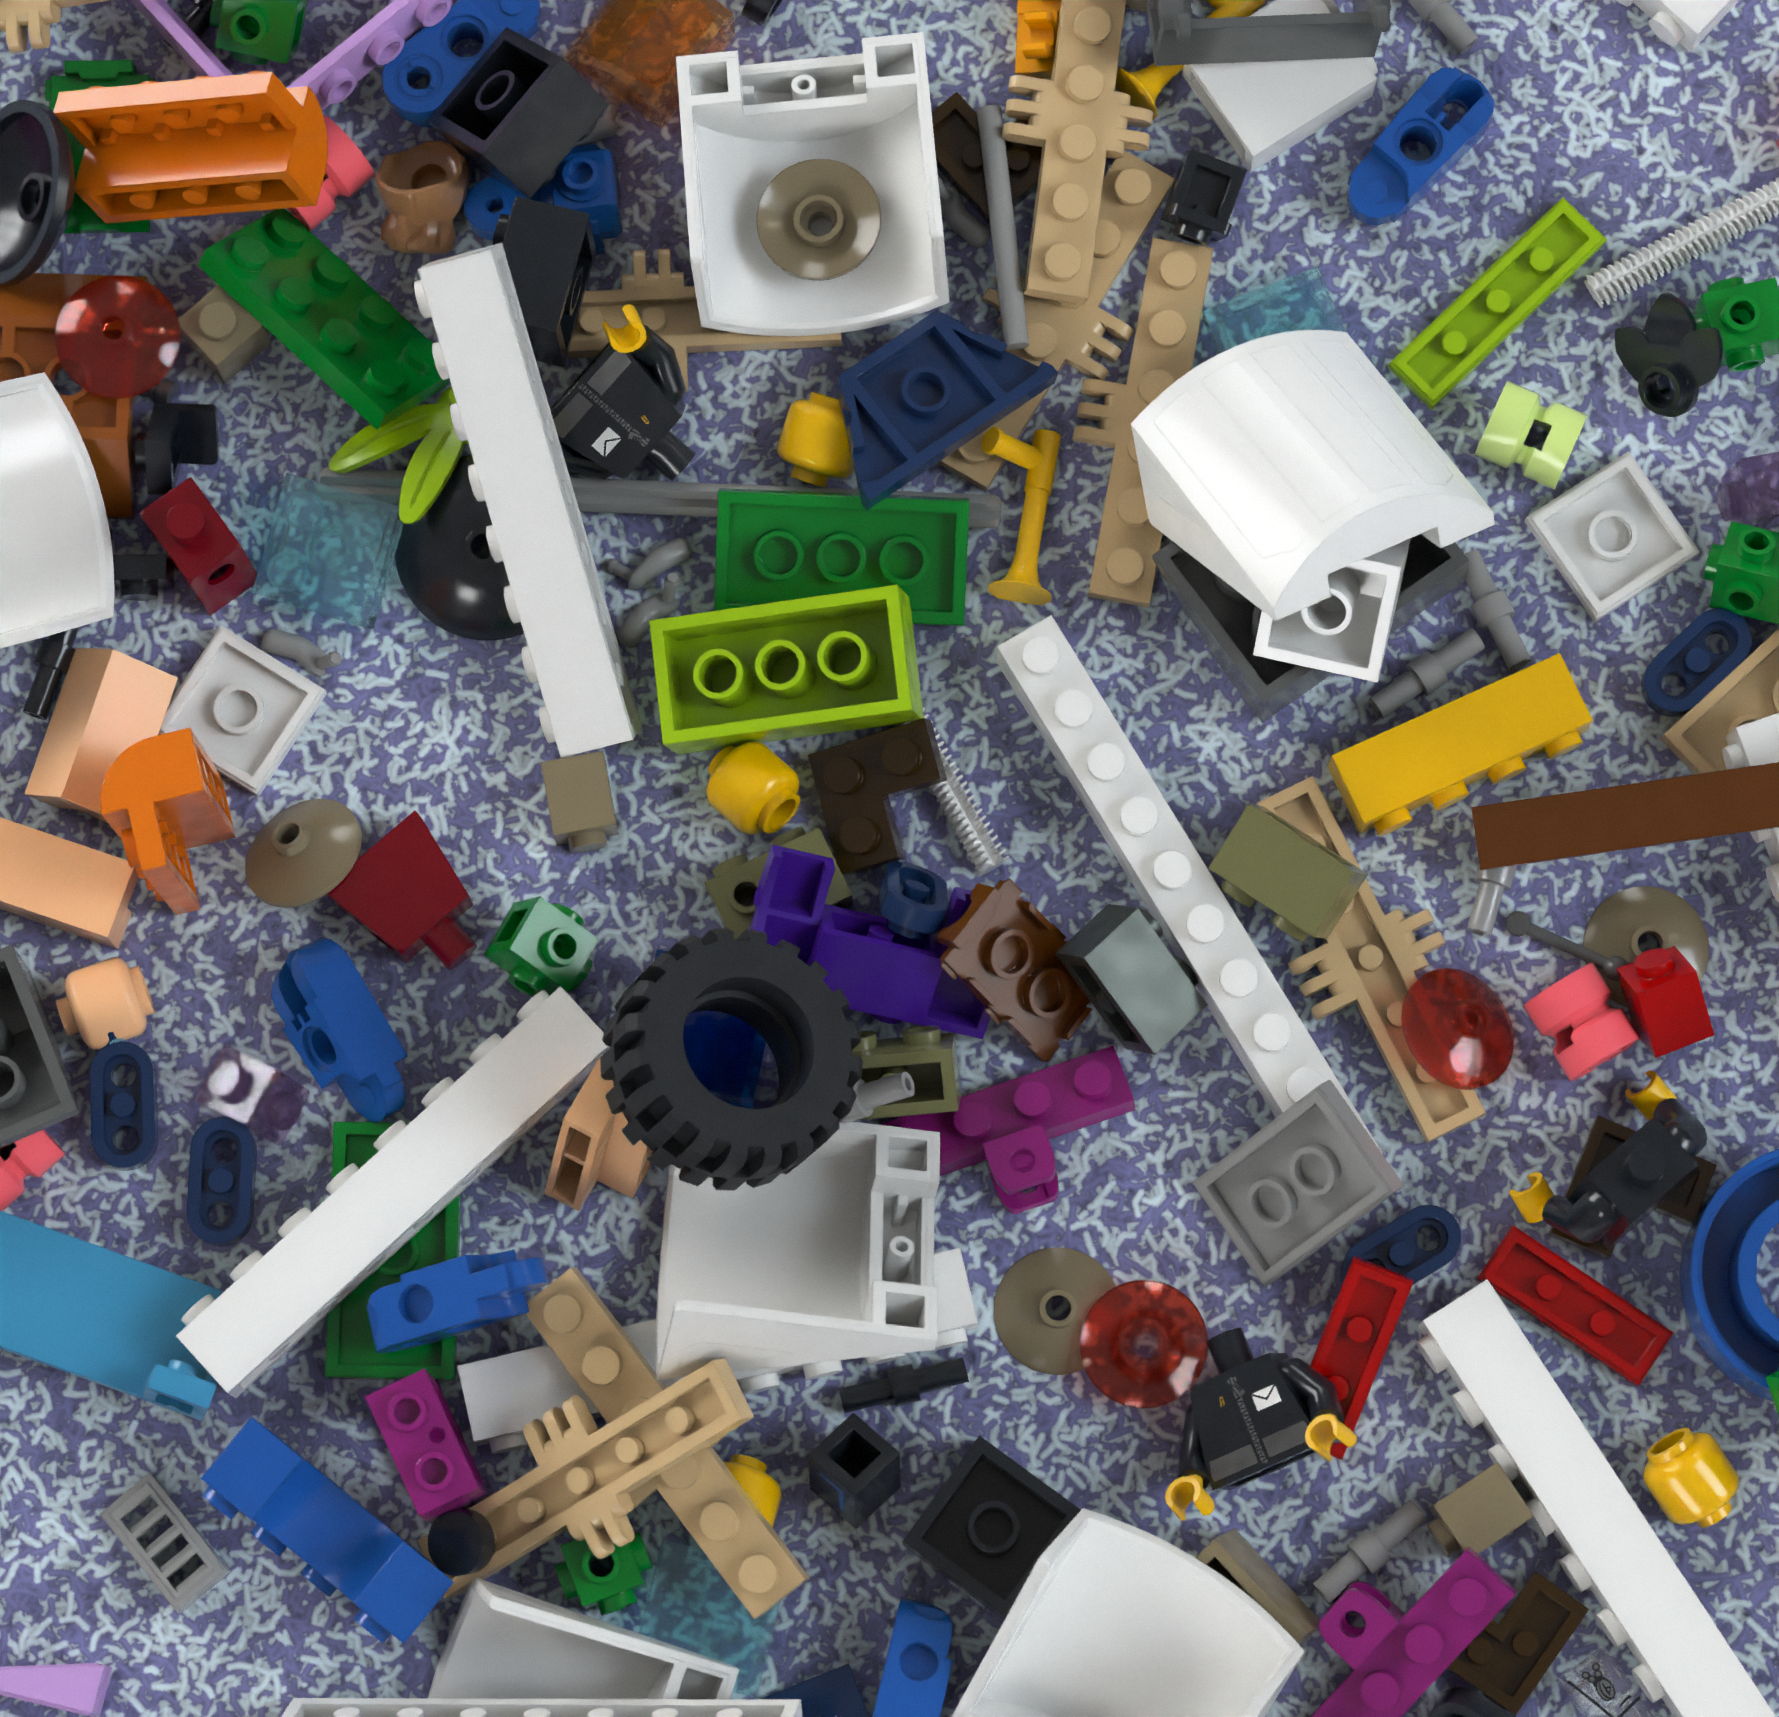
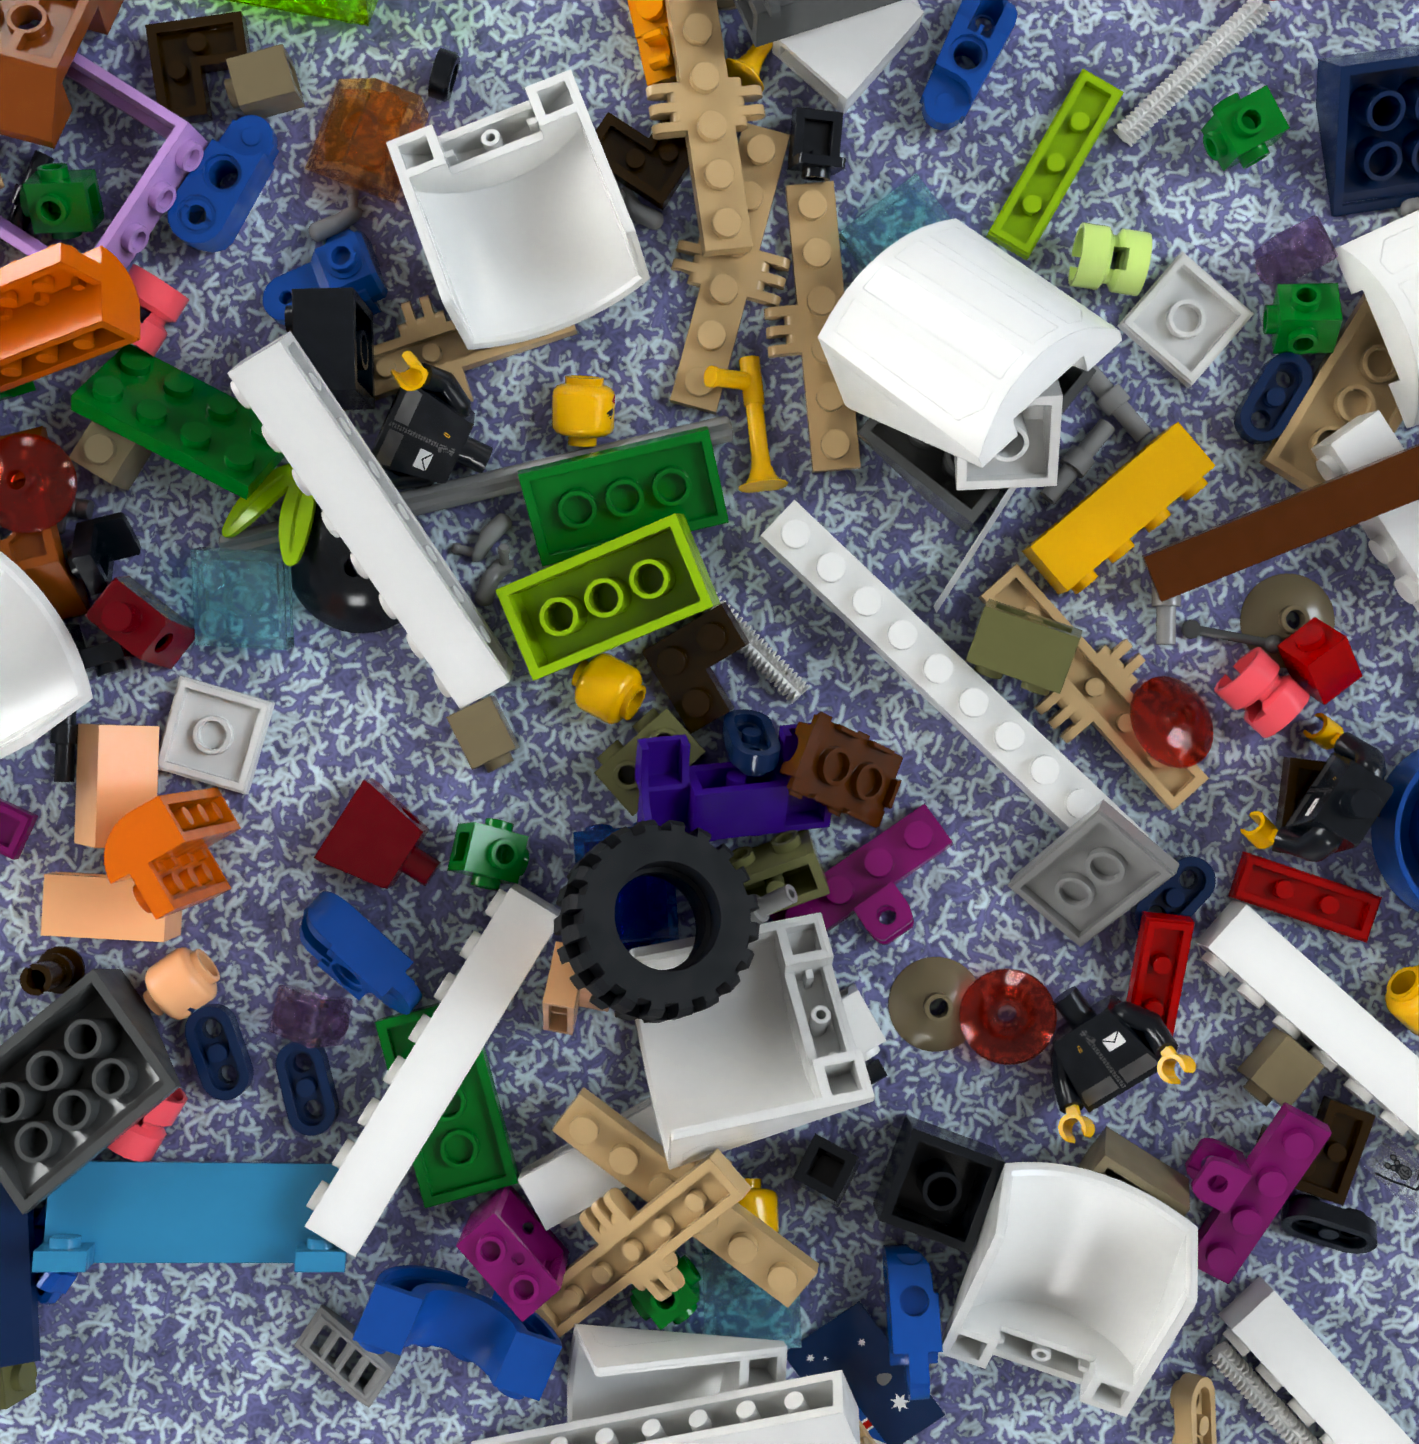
camera: 15 degrees left, 10 degrees up
(301, 650) = (244, 675): light grey piece -> none
(303, 853) = (292, 831): dark tan dish -> none
(423, 195) = (230, 305): medium nougat hair -> none
(452, 1299) = (501, 1140): blue piece -> none
(461, 1542) = (562, 1309): black tile -> none
(518, 113) = (280, 220): black brick -> none
(813, 192) = (528, 218): dark tan dish -> none
(928, 399) = (655, 358): dark blue wing -> none
(1002, 227) = (673, 208): light grey bar -> none
(1133, 977) = (929, 754): pearl dark grey brick -> none
(1268, 740) = (973, 549): none -> white sticker
(1369, 1551) = (1205, 1115): light grey bar -> none
(1670, 351) = (1197, 161): black plate -> none

